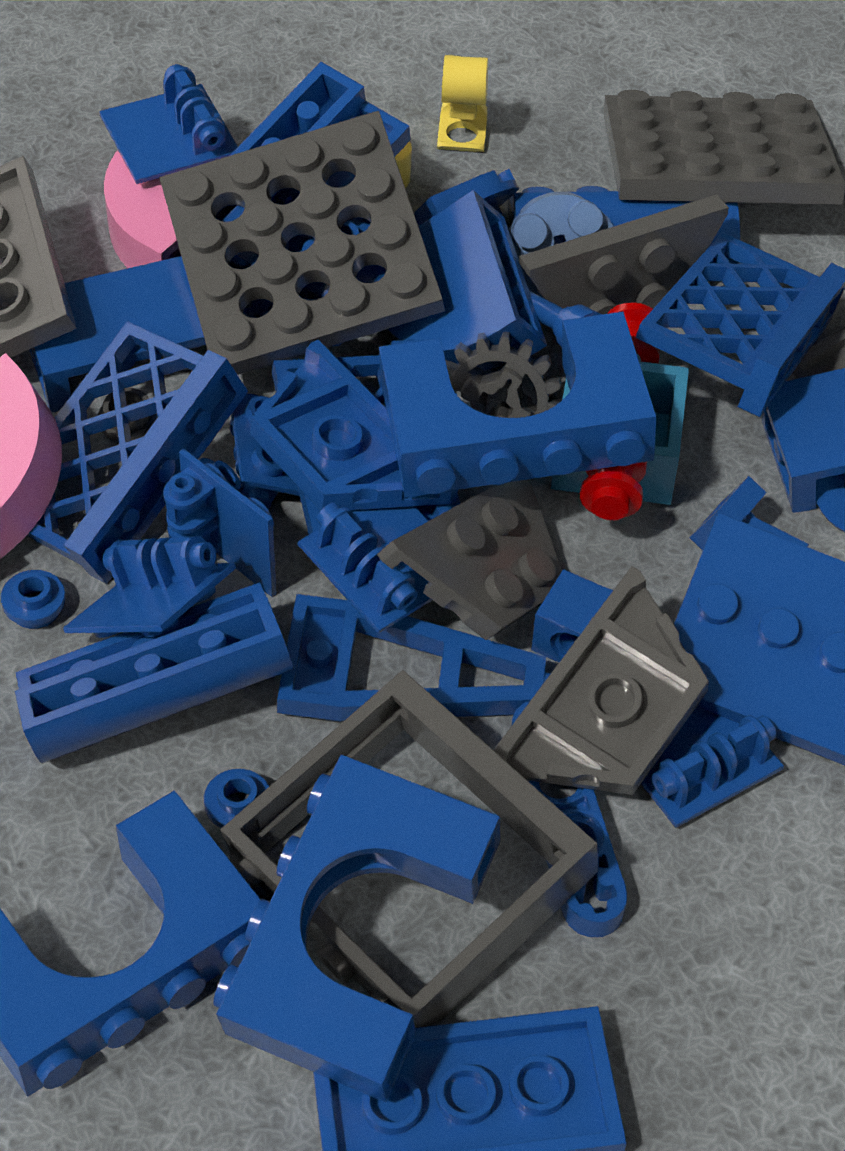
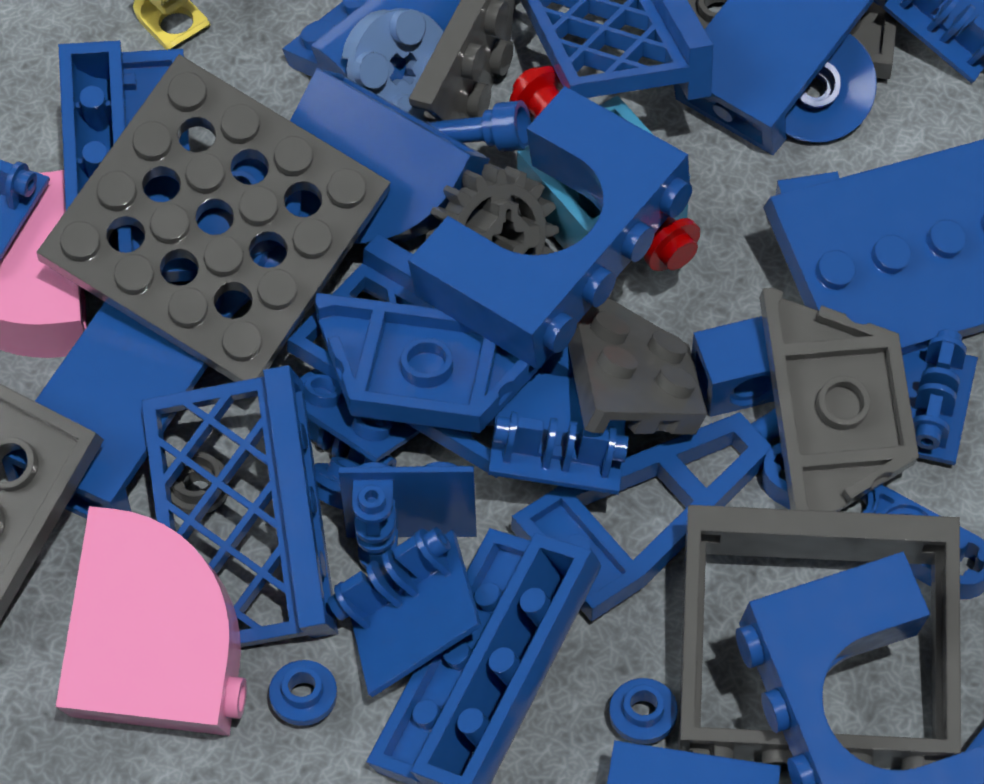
camera: 40 degrees left, 5 degrees up
(489, 186) = (283, 72): blue plate -> none
(735, 505) = (745, 193): blue plate -> none

